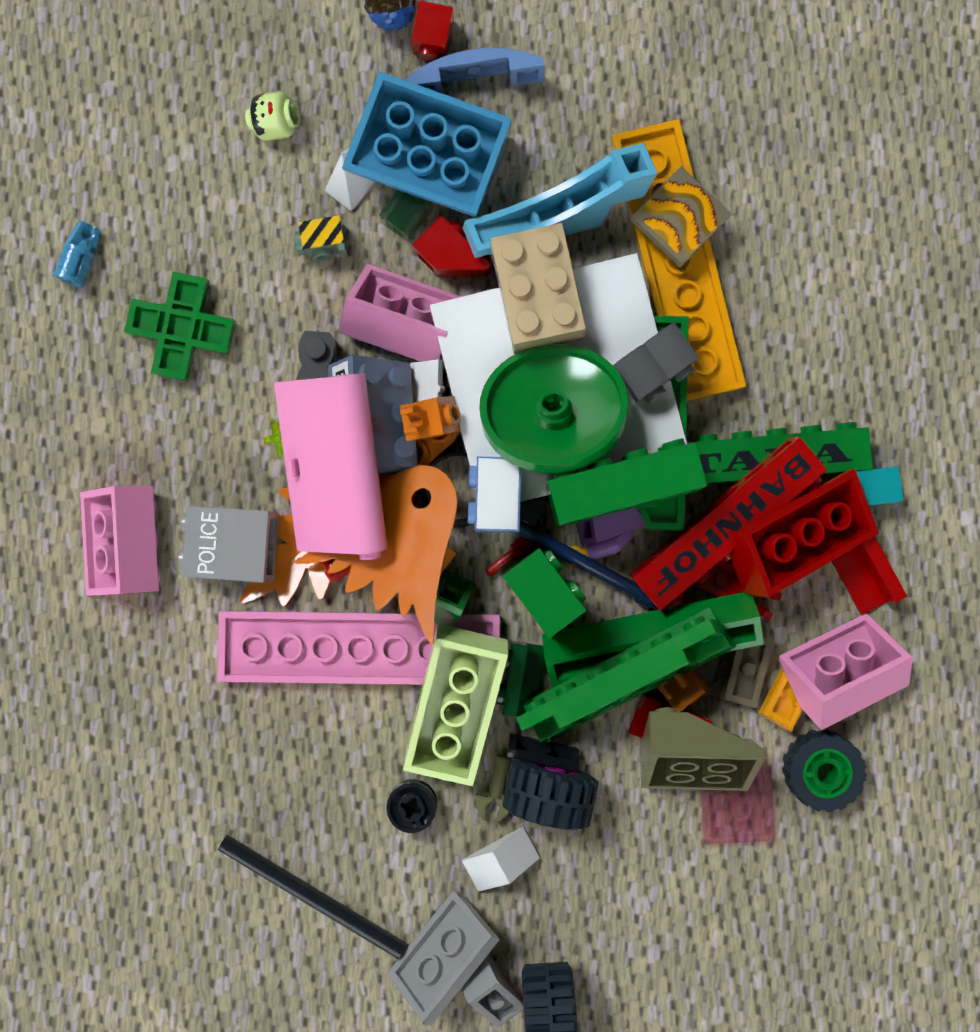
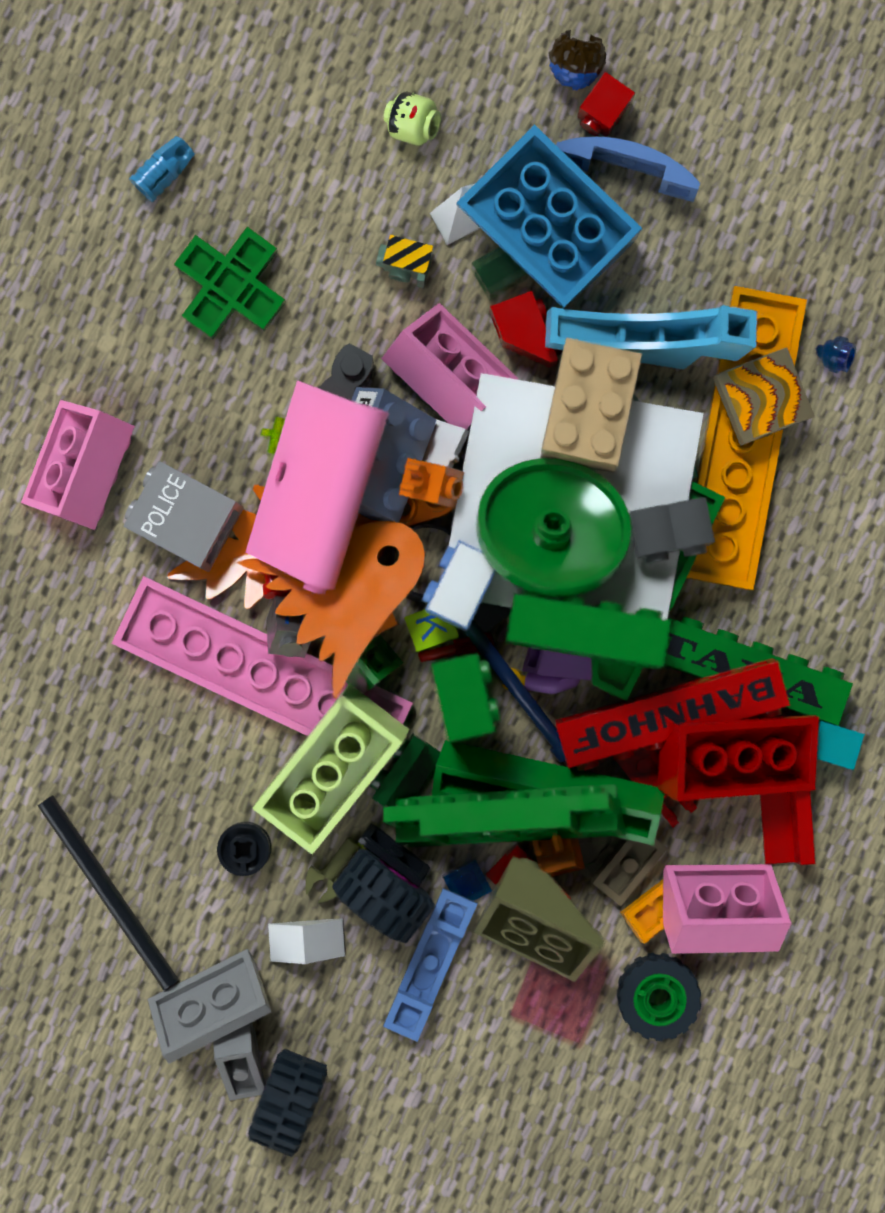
camera: 25 degrees right, 0 degrees up
(361, 606) = (283, 632): none -> flat silver brick
(485, 546) = (429, 631): none -> lime brick
(615, 747) = (467, 880): none -> clear blue slope
(616, 833) = (429, 964): none -> medium blue slope
(724, 154) = (837, 354): none -> clear blue plate

